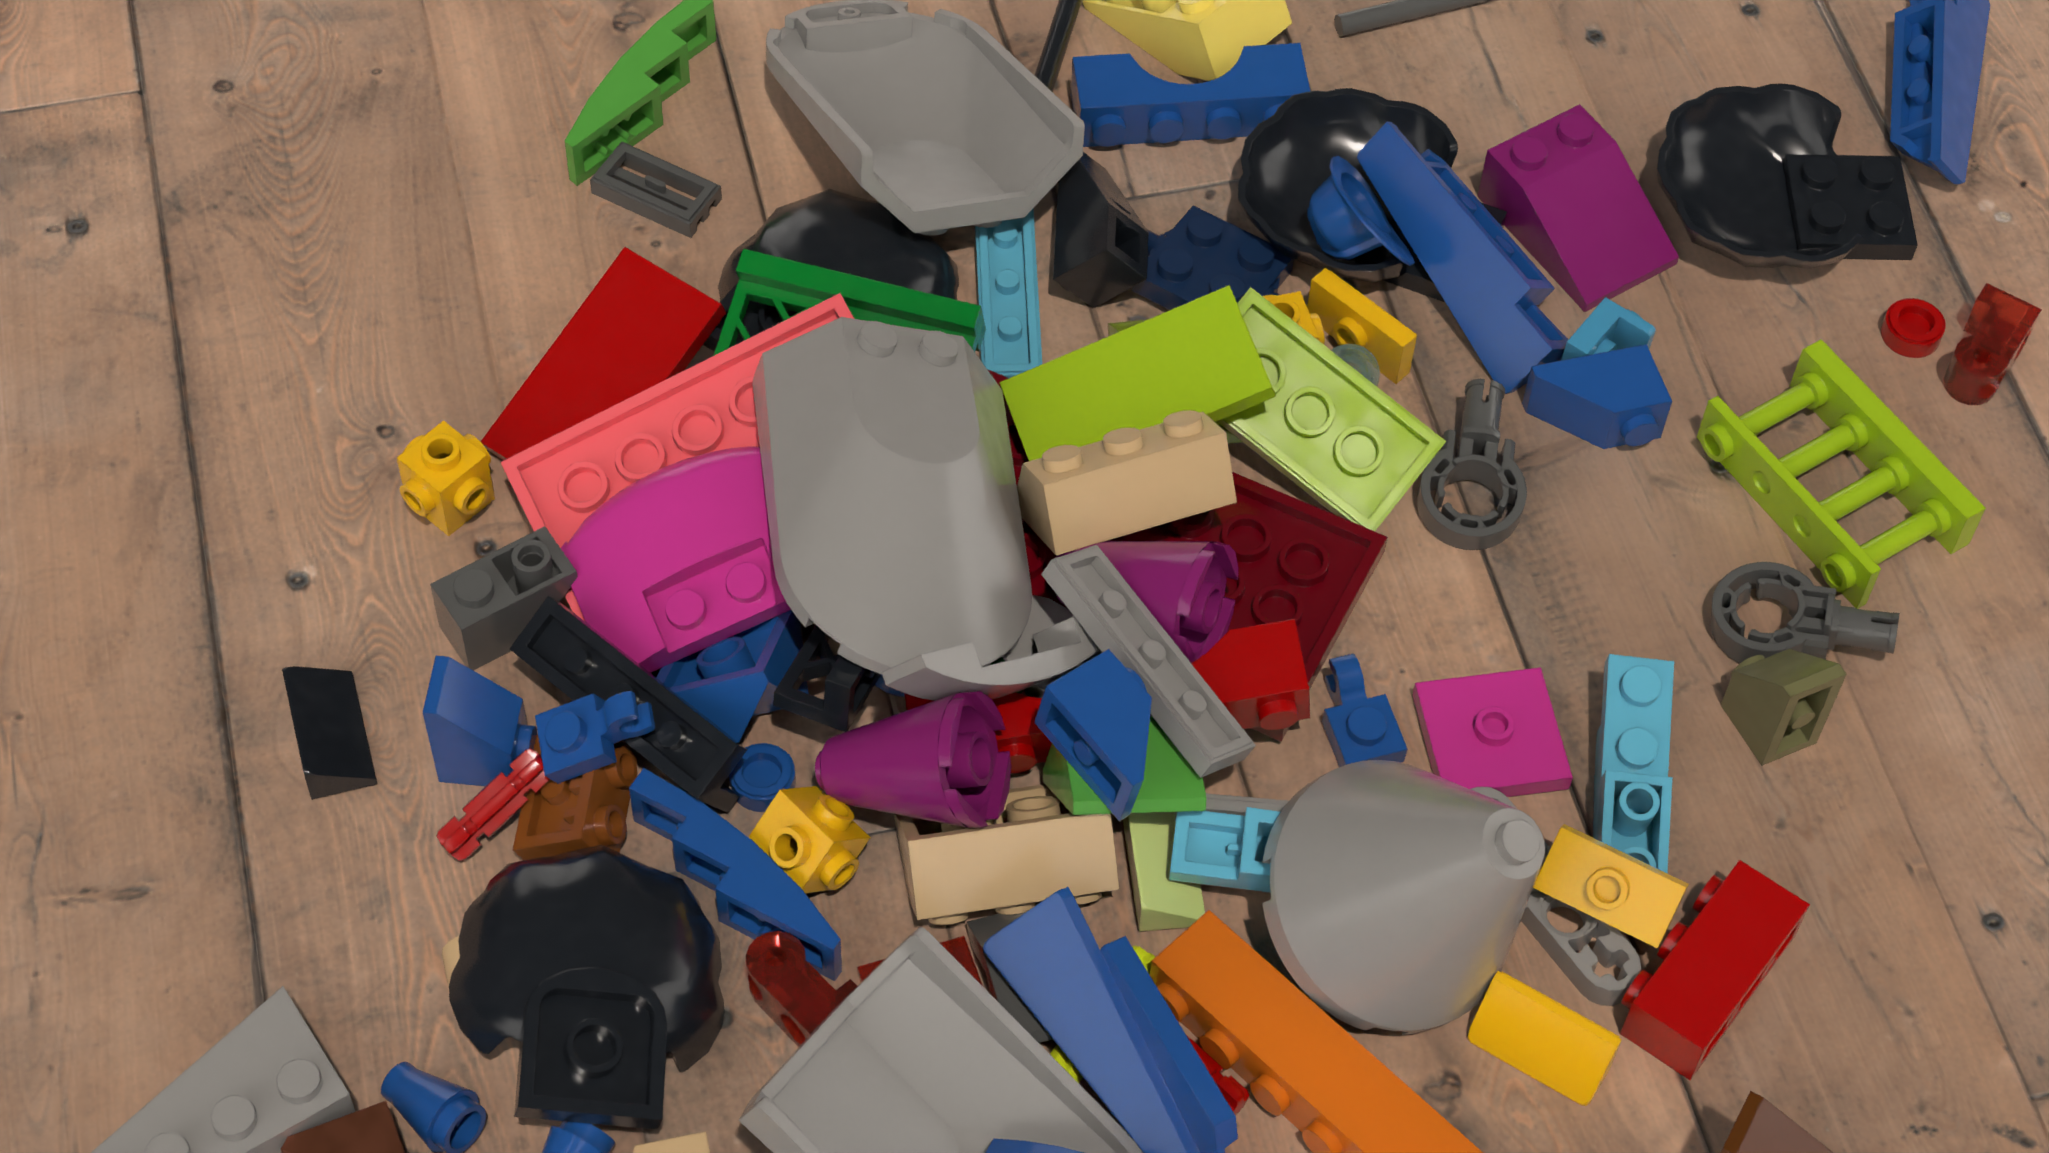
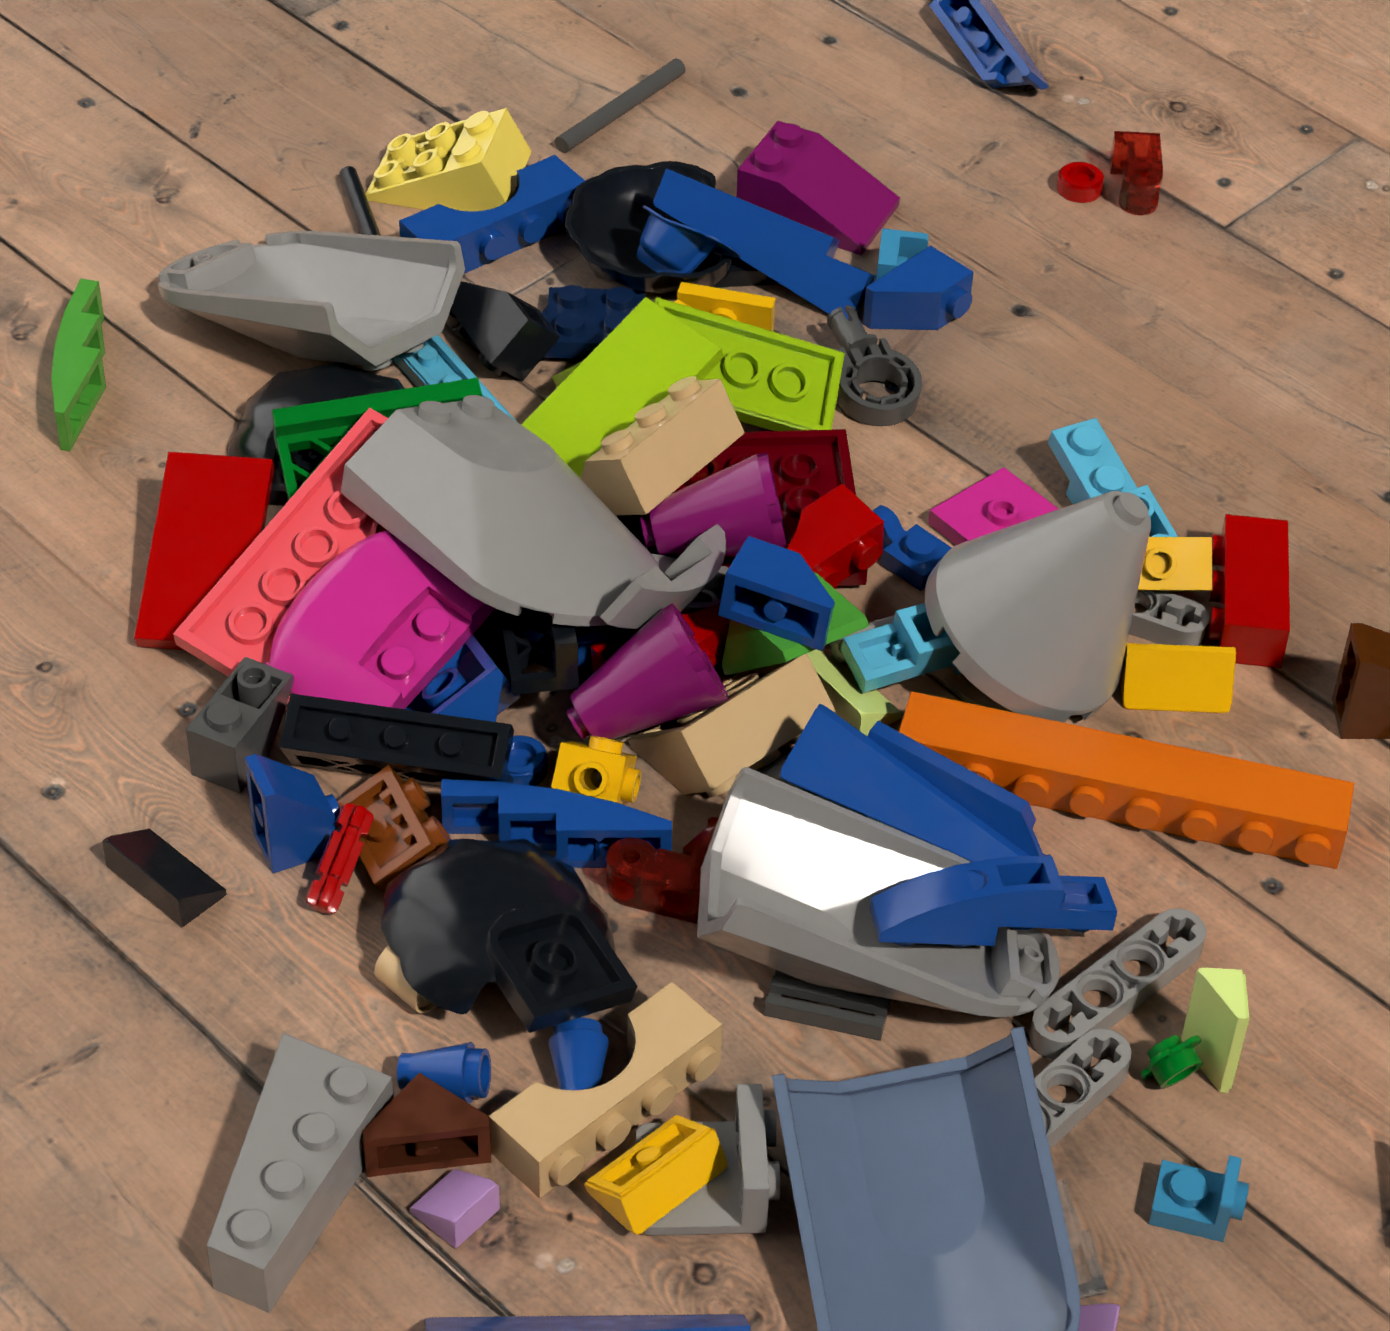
camera: 30 degrees left, 10 degrees down
(446, 477) = (130, 667): yellow brick -> none
(584, 731) = (384, 774): blue plate -> none
(649, 194) = (137, 427): dark grey tile -> none
(1121, 622) = (731, 528): light grey tile -> none
(1768, 191) = (925, 135): black animal -> none
(1781, 701) = (1175, 417): olive slope -> none
(1817, 616) = (1153, 364): dark grey pin -> none
(1877, 437) = (1113, 250): lime fence -> none

